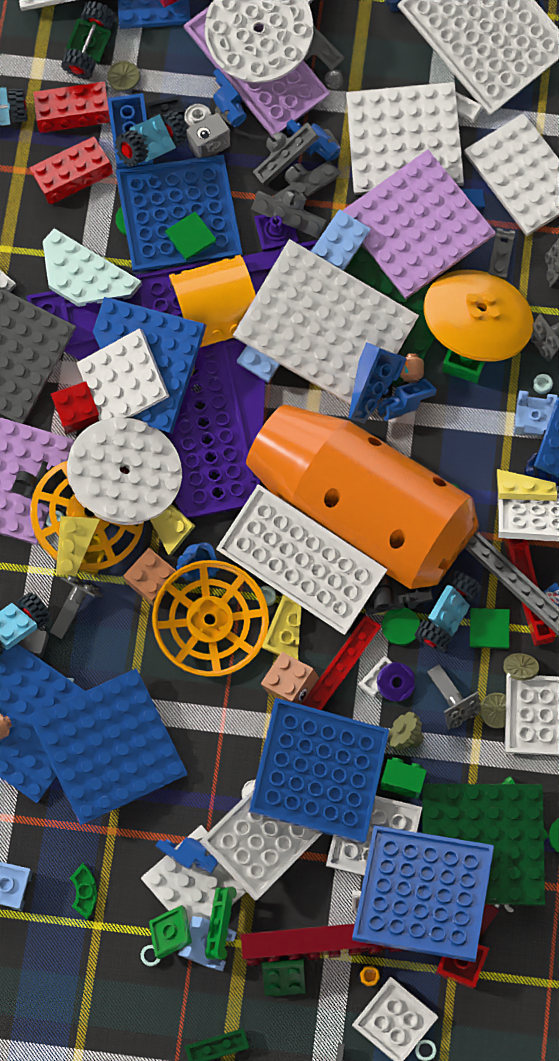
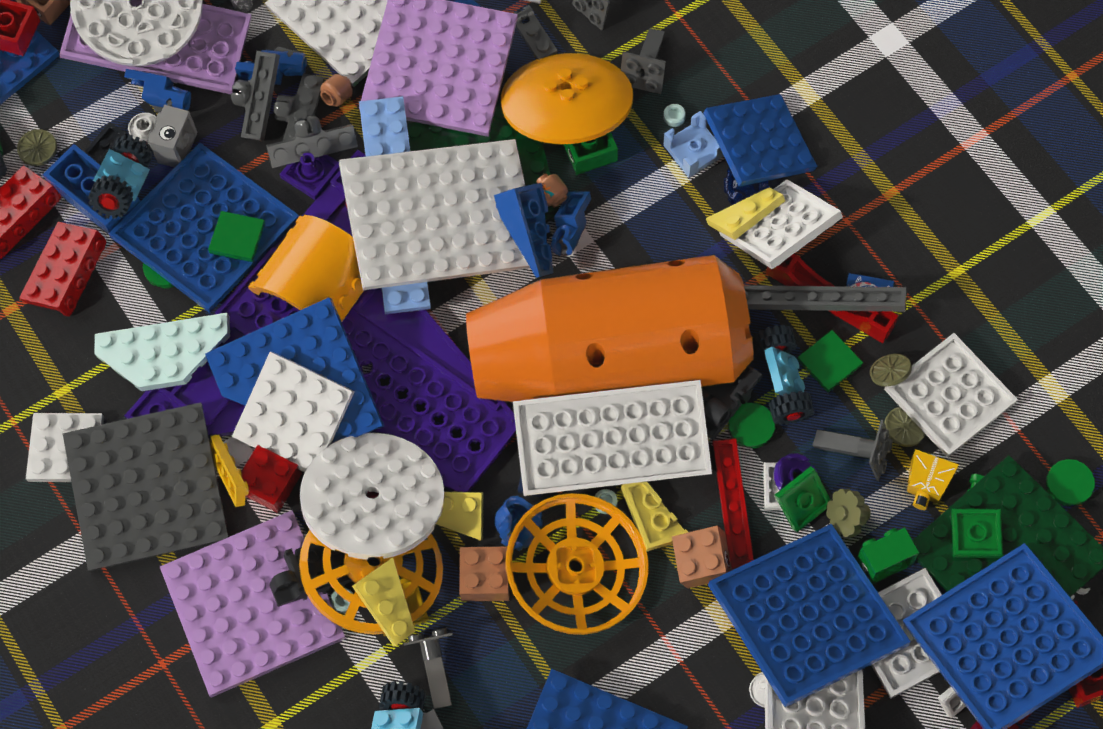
camera: 40 degrees left, 5 degrees down
(52, 386) = (228, 472): none -> yellow plate
(339, 189) = (336, 90): none -> nougat head
(385, 699) = (803, 499): none -> green tile
(472, 813) = (976, 533): none -> green tile
(479, 755) = (929, 478): none -> yellow torso

